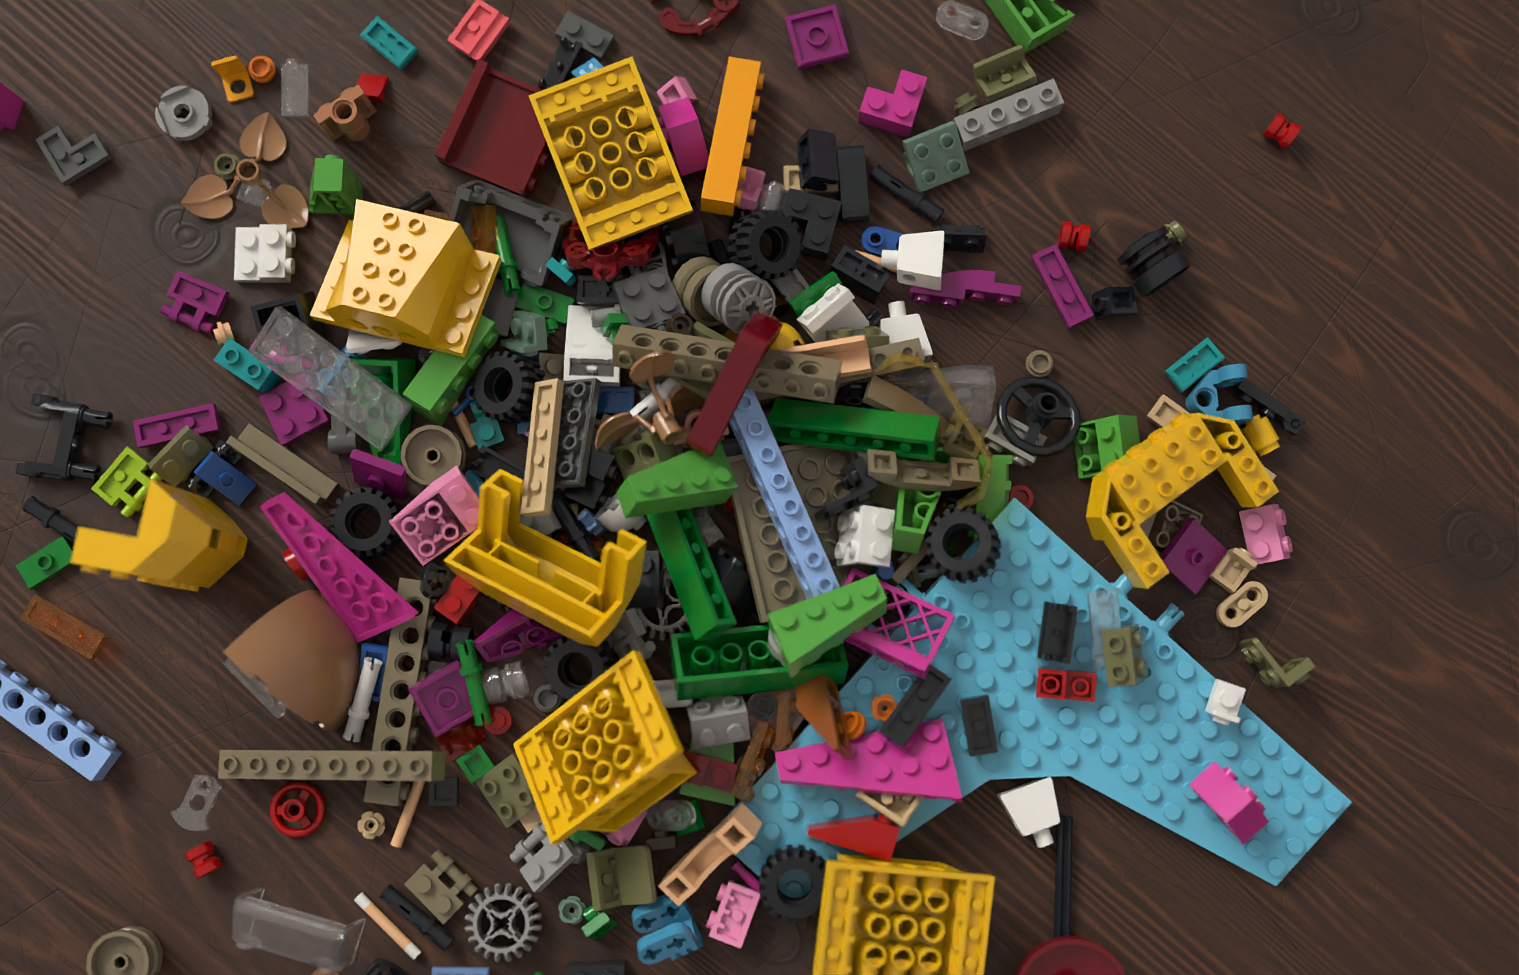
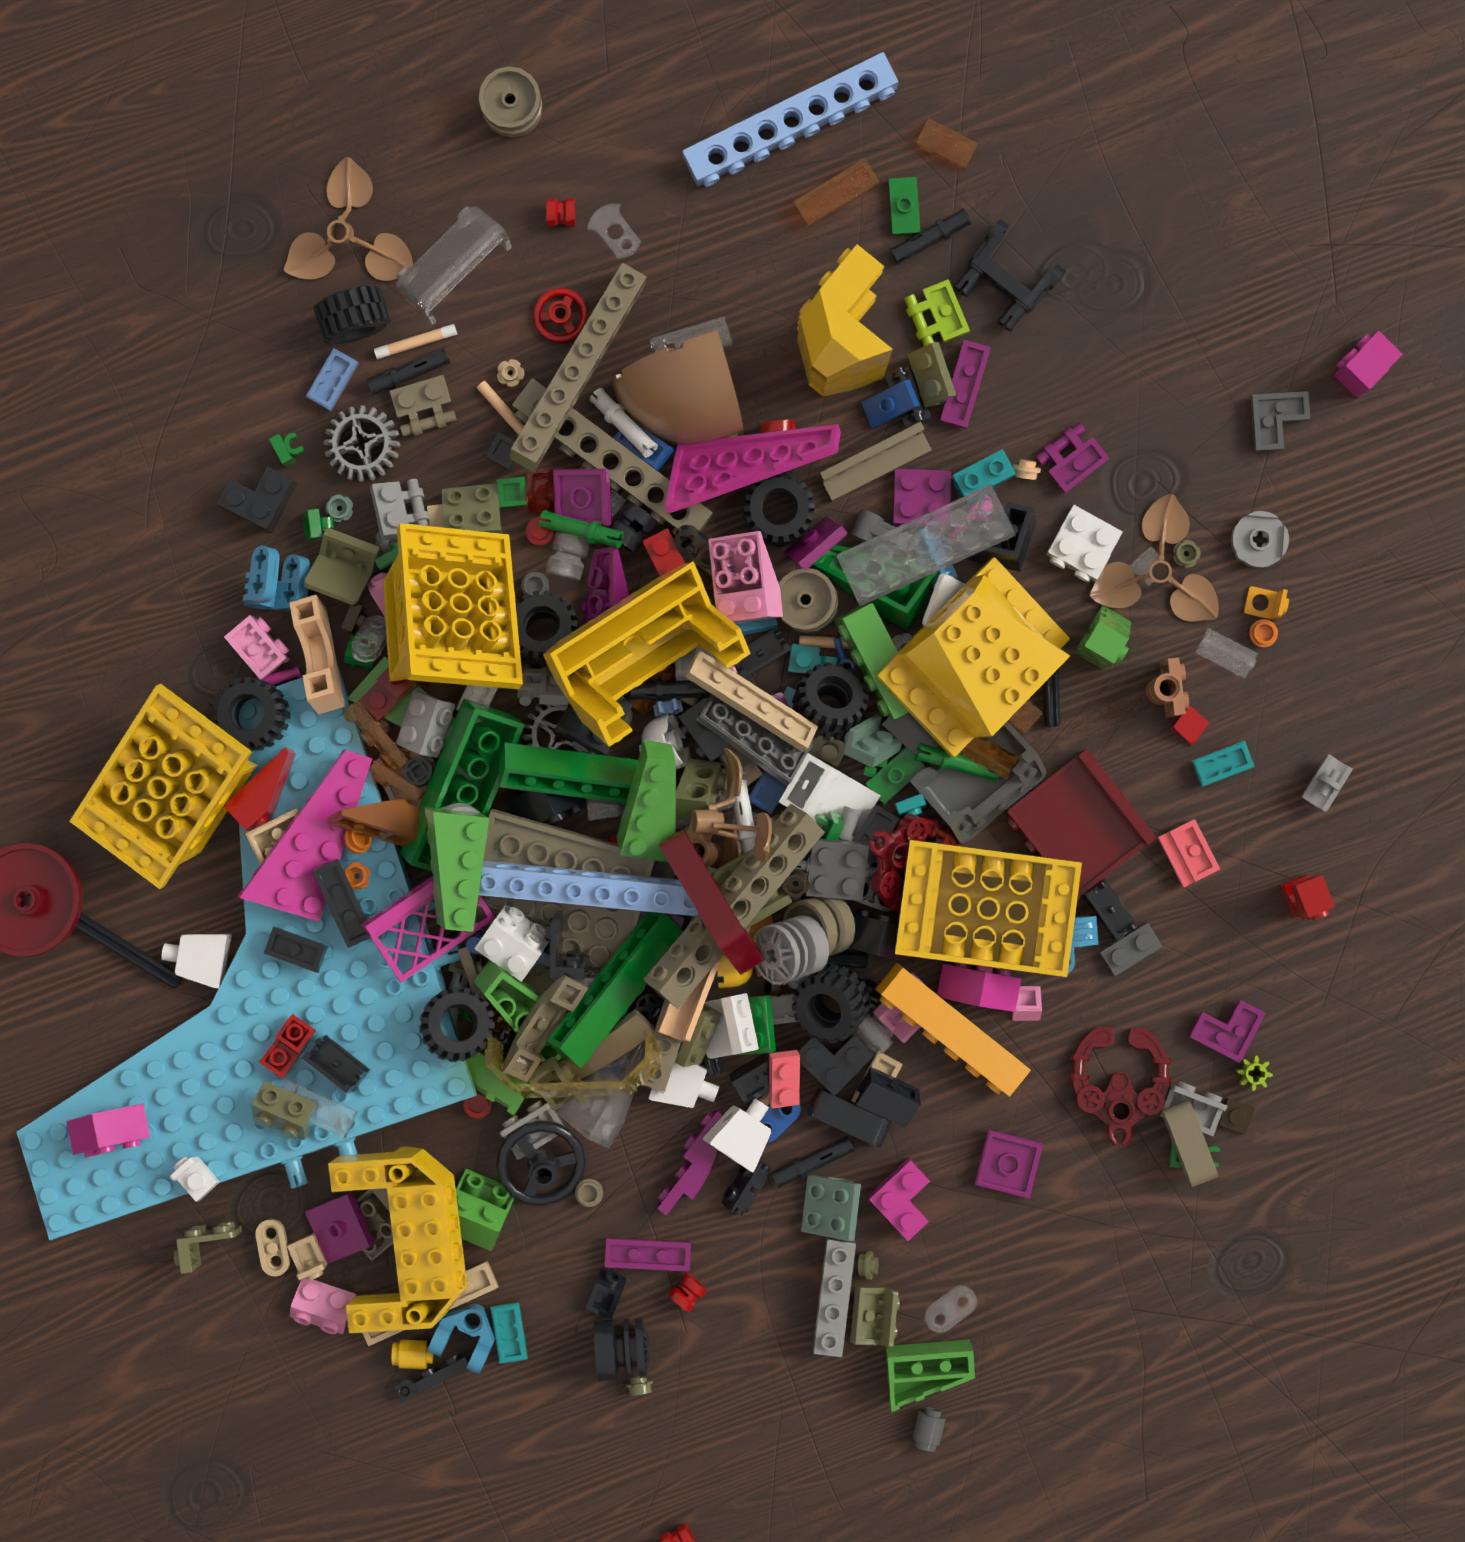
camera: 110 degrees right, 5 degrees up
(850, 250) = (784, 1078): none -> coral plate

